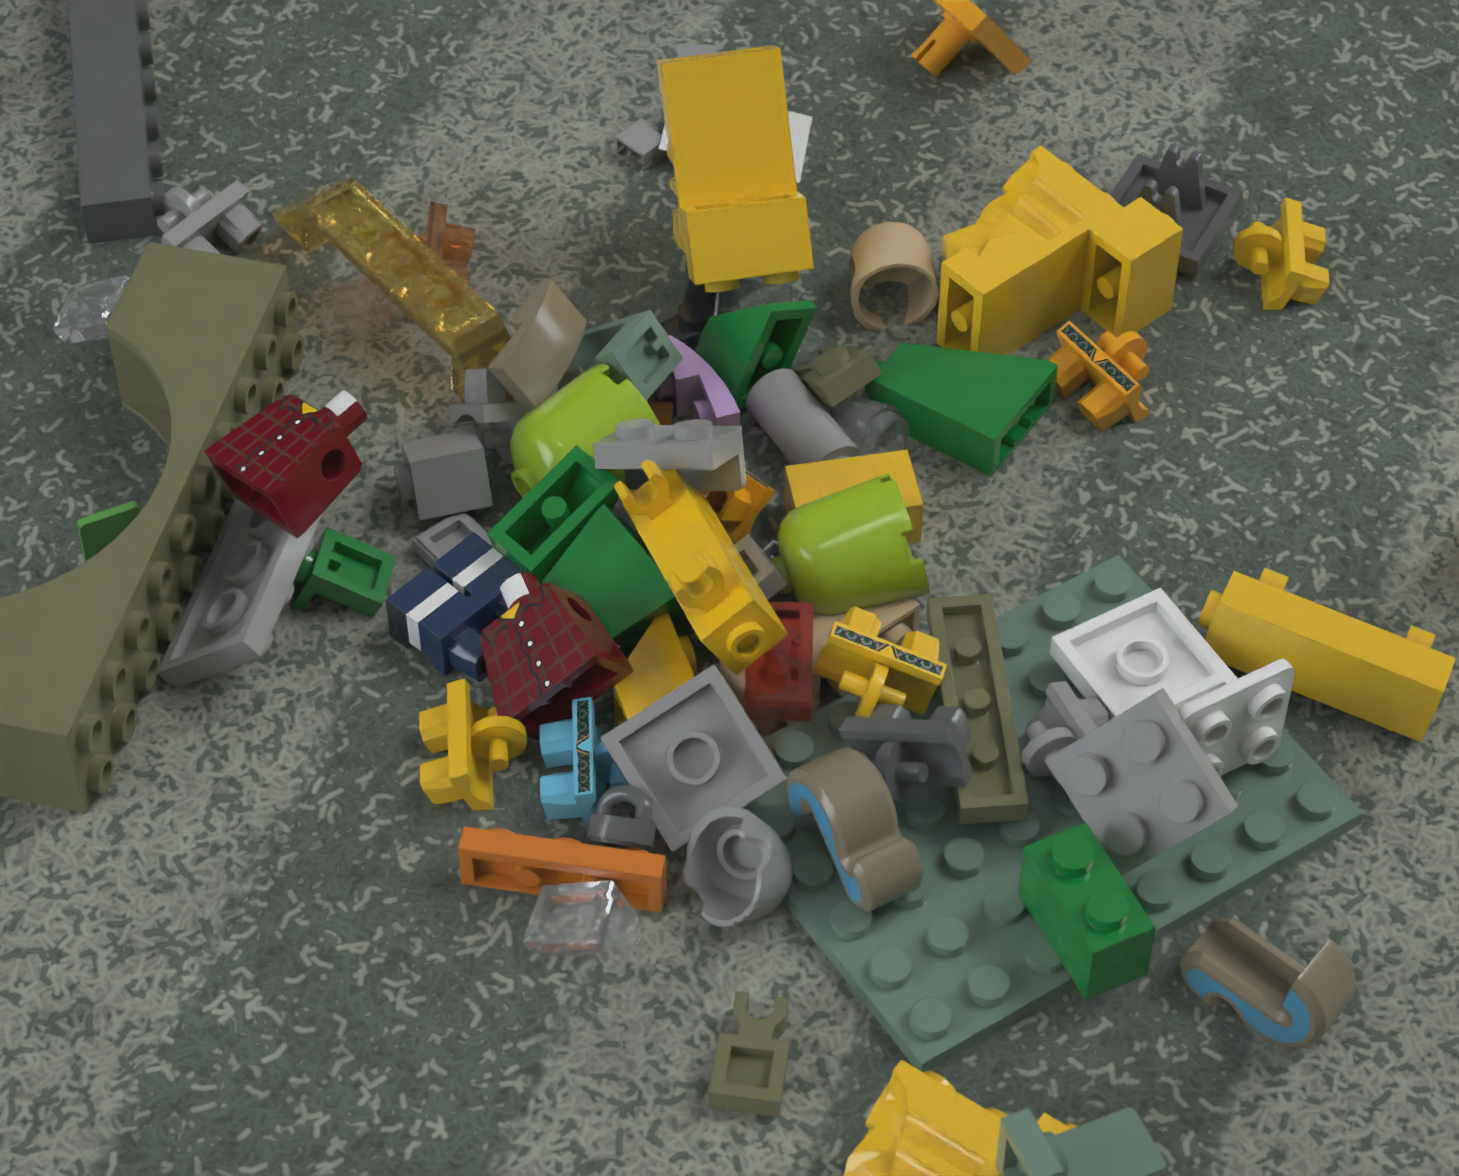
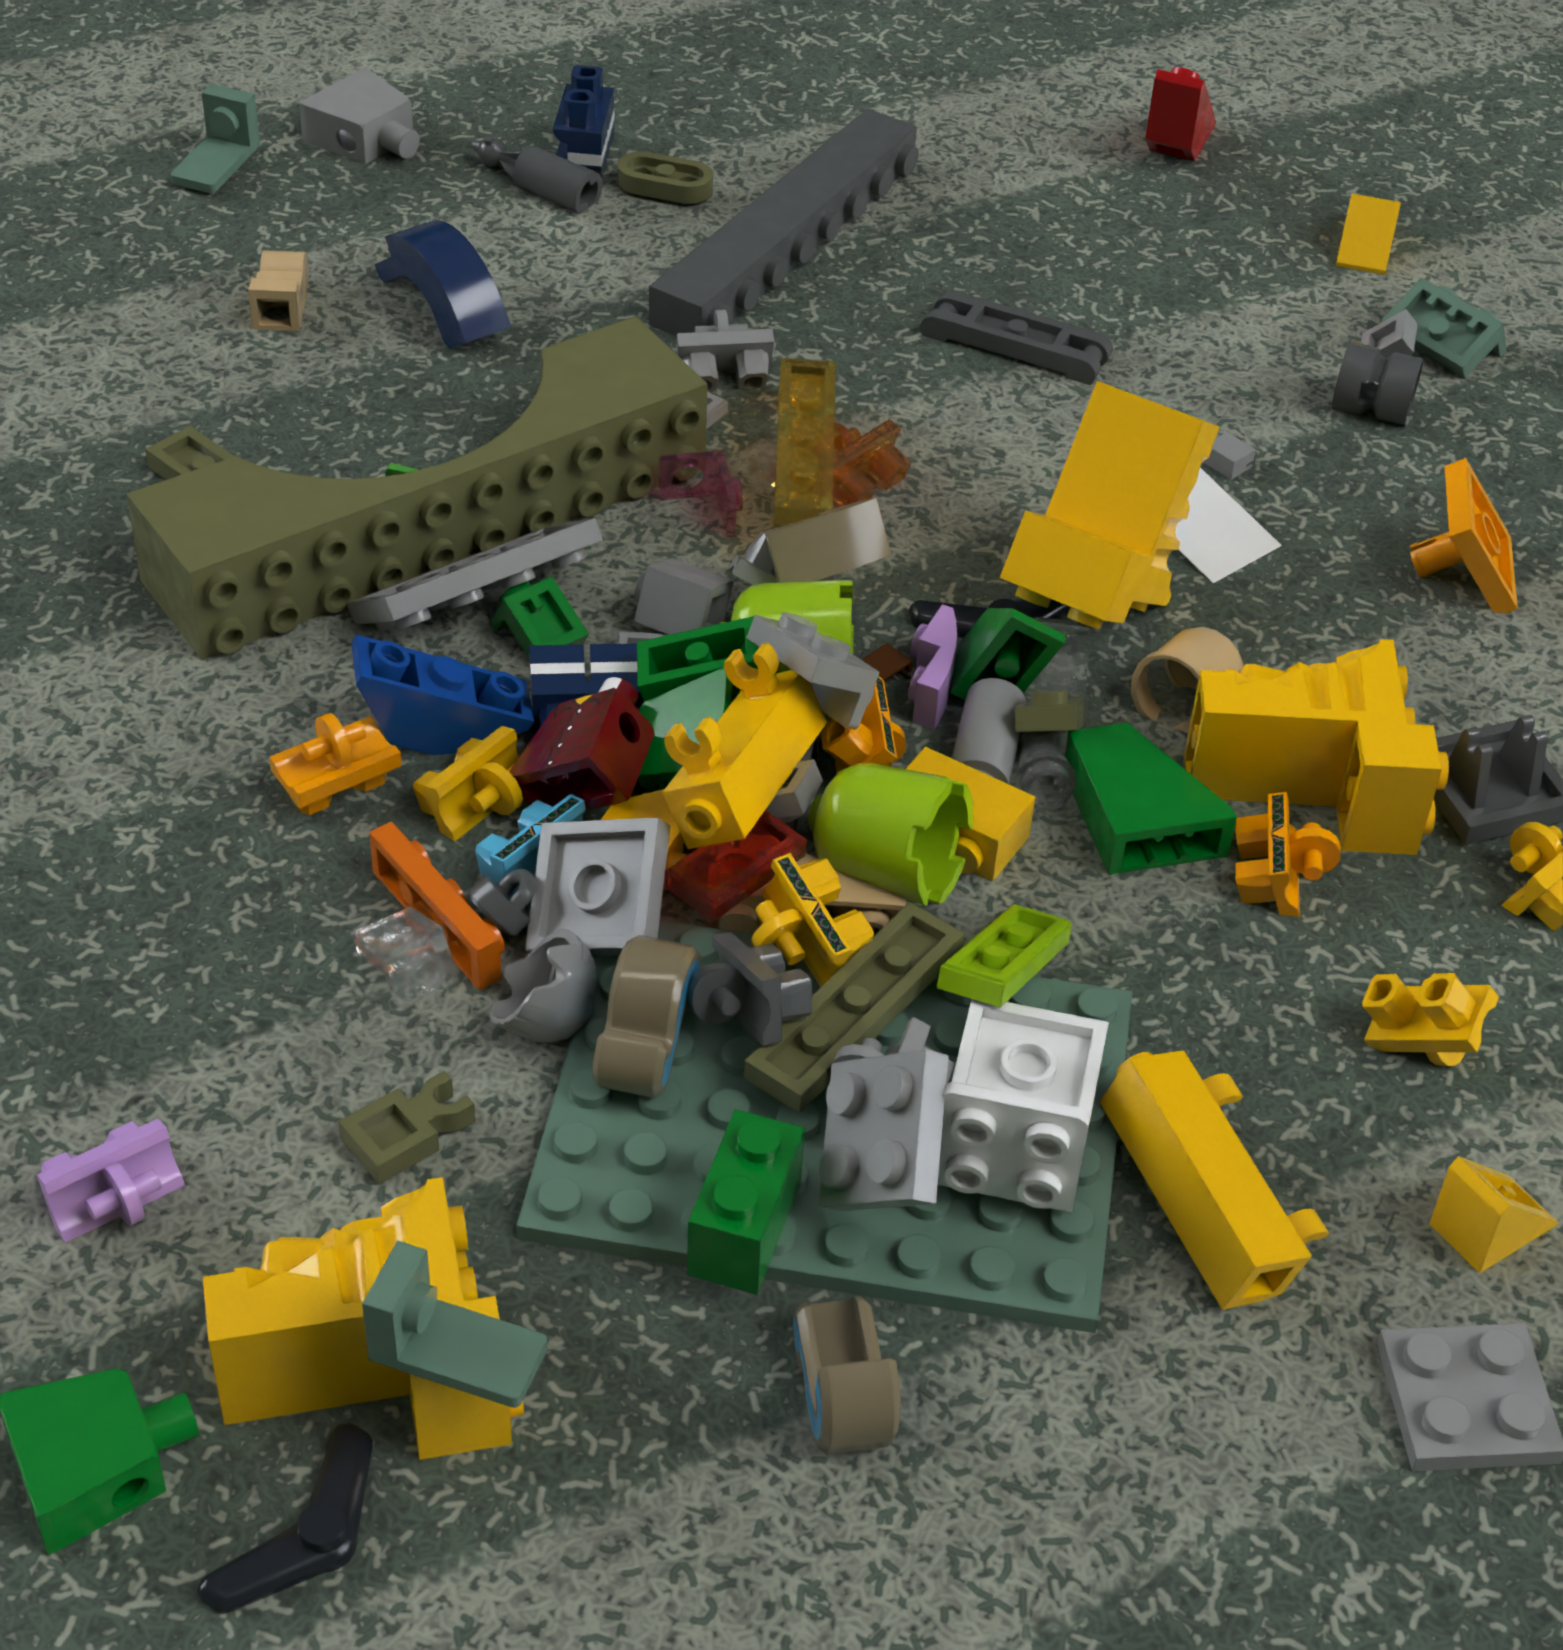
camera: 40 degrees right, 5 degrees down
(291, 459) = (551, 502): dark red torso -> none
(340, 816) = (334, 762): none -> light orange hips
(344, 349) = (715, 482): none -> clear pink bracket
(367, 698) = (436, 700): none -> blue slope
(415, 58) = (1018, 335): none -> dark grey plate
(633, 350) = (895, 598): sand green bracket -> none
(1023, 590) = (1005, 955): none -> lime tile
(1334, 428) = (1430, 1018): none -> yellow hips

